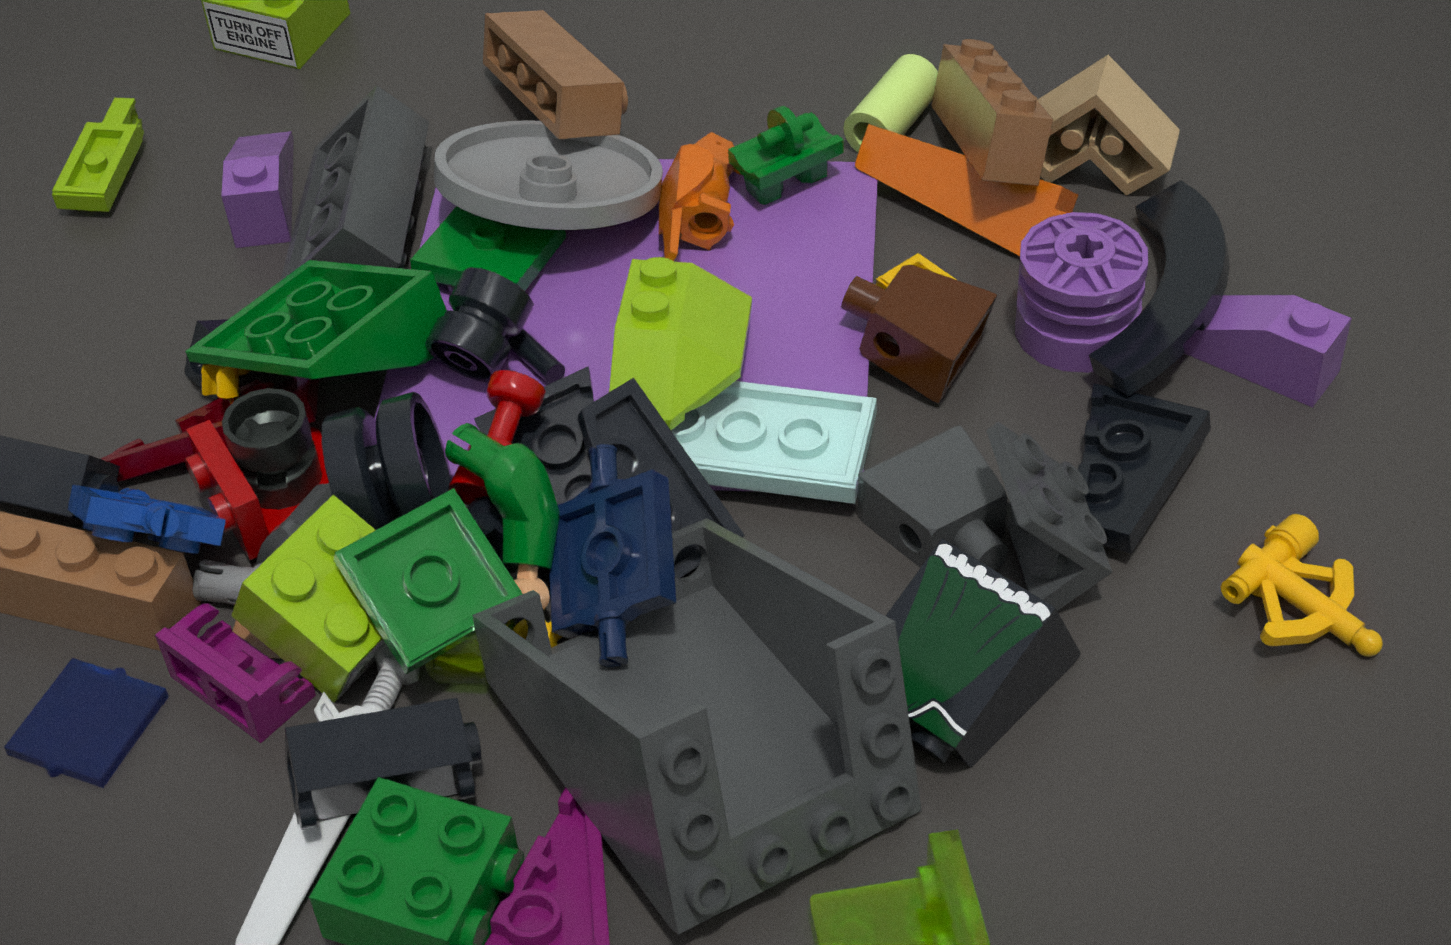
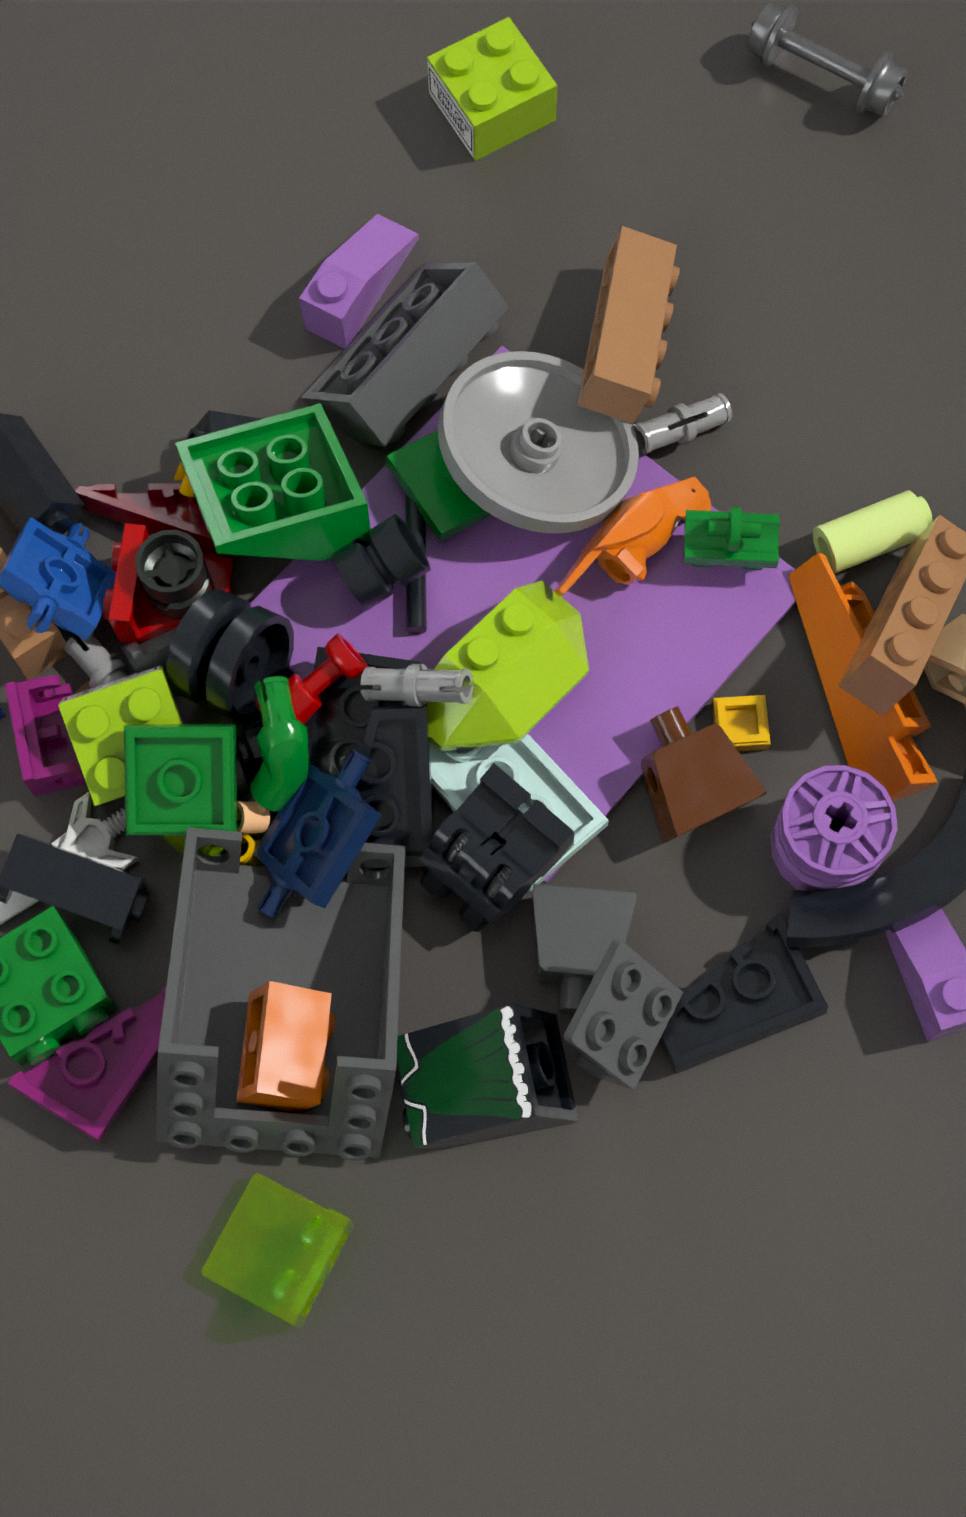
camera: 35 degrees right, 25 degrees up
(100, 160) = (264, 174): lime hinge -> none
(608, 366) = (417, 685): none -> light grey pin
(662, 119) = (707, 414): none -> light grey pin
(757, 740) = (285, 1048): none -> orange brick
(798, 461) = (478, 867): none -> black hips
(1278, 571) = (751, 1161): yellow piece -> none

